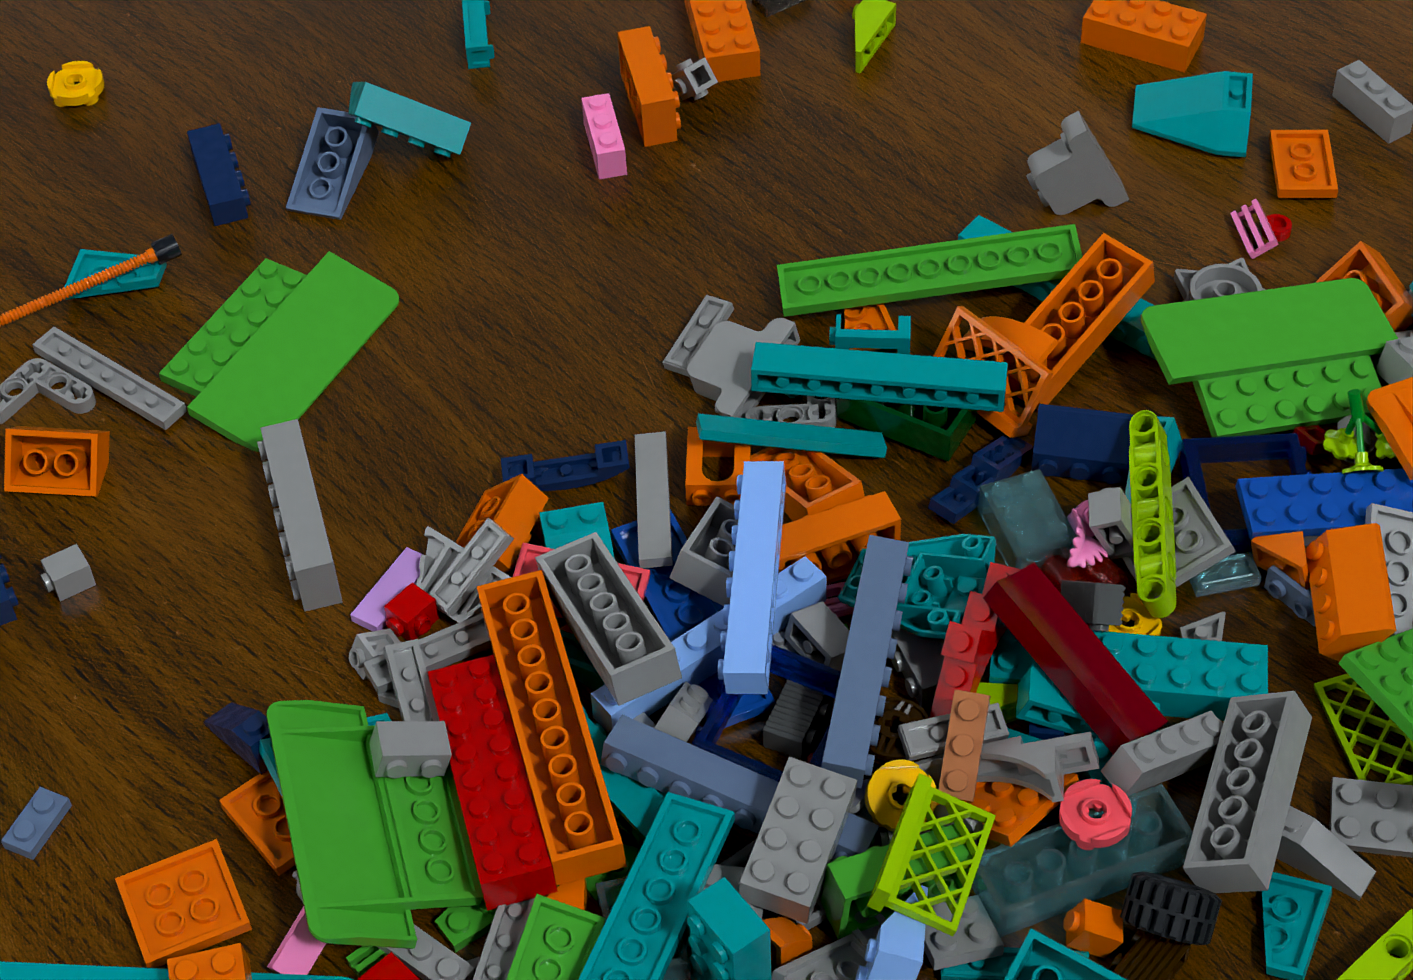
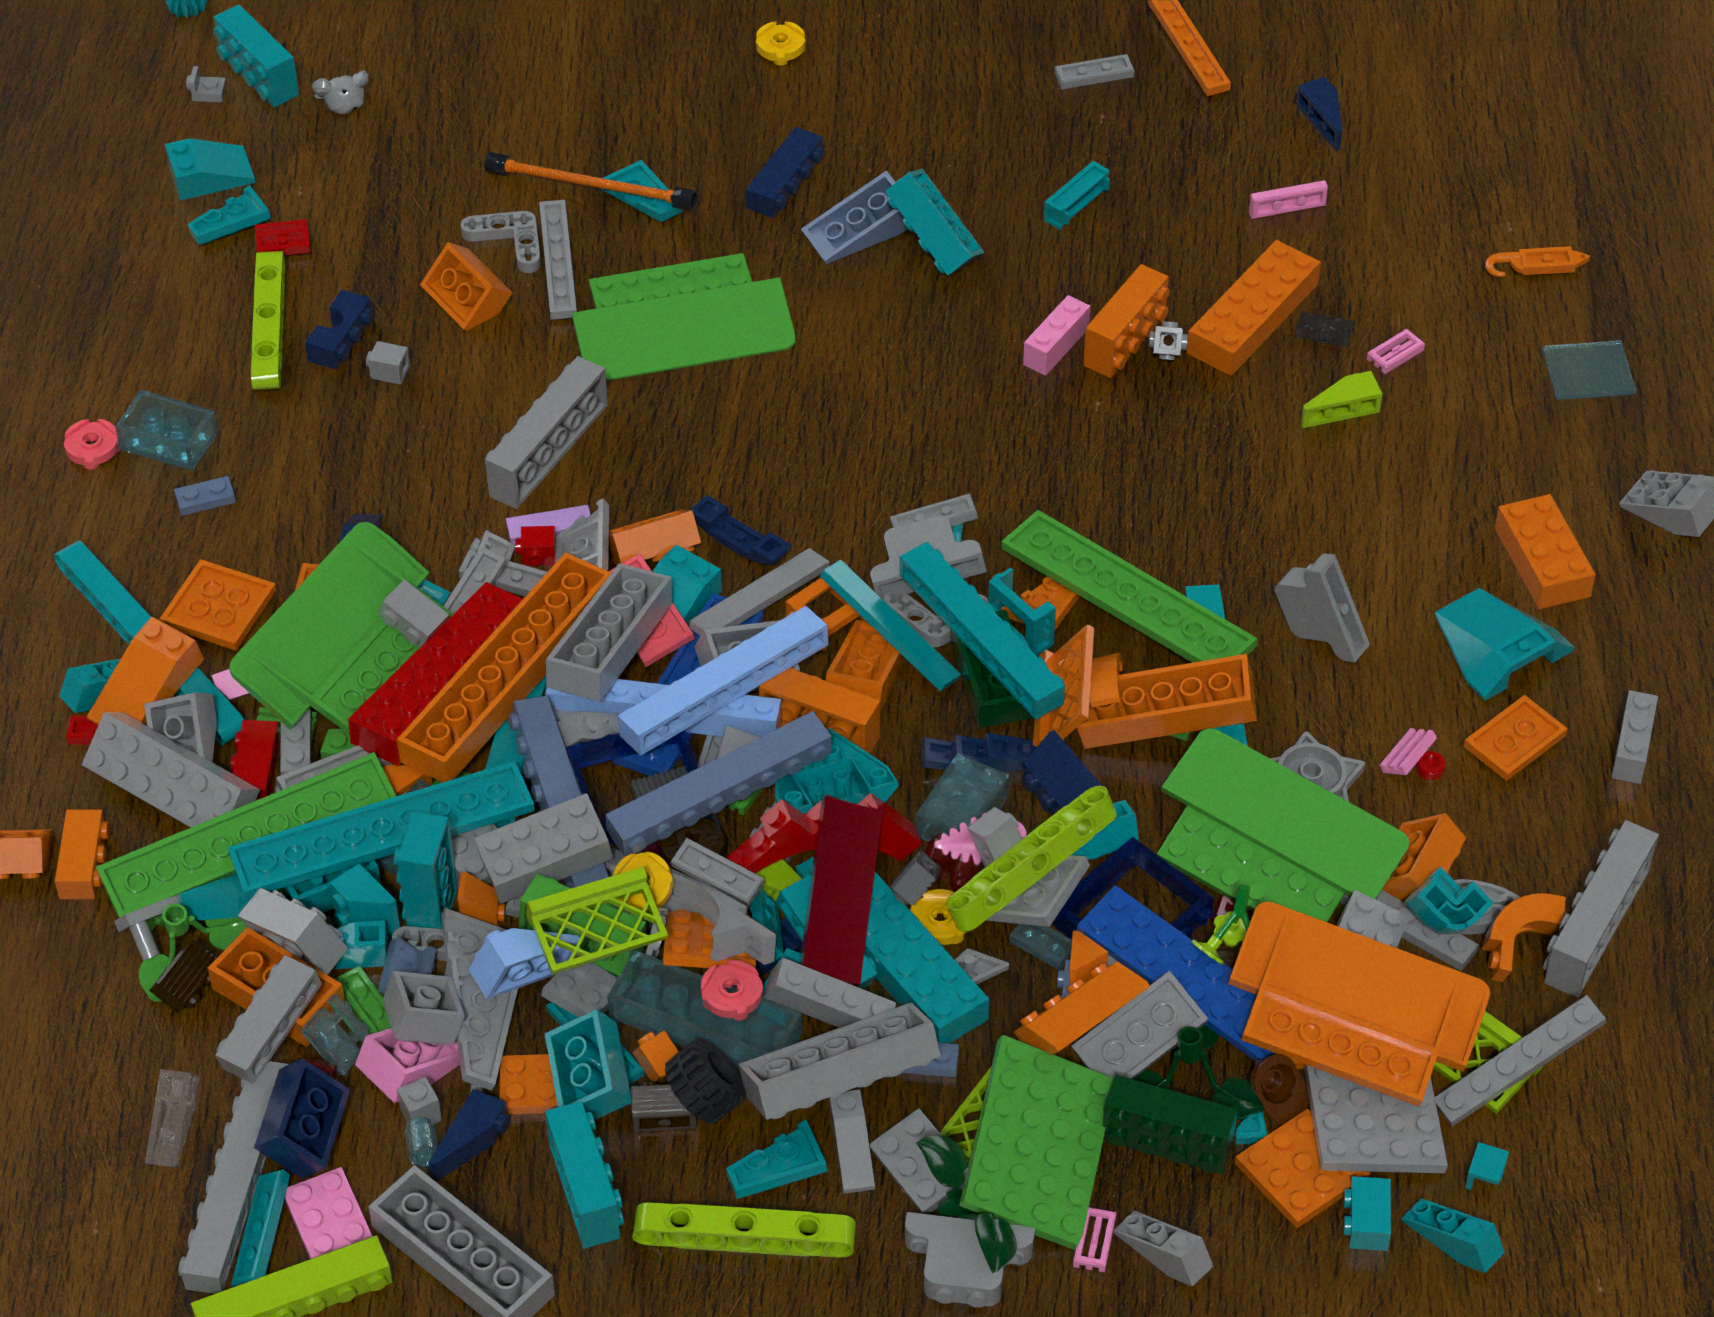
camera: 45 degrees right, 0 degrees up
(470, 566) = (594, 540): light grey tile -> none
(964, 744) = (705, 881): nougat plate -> none

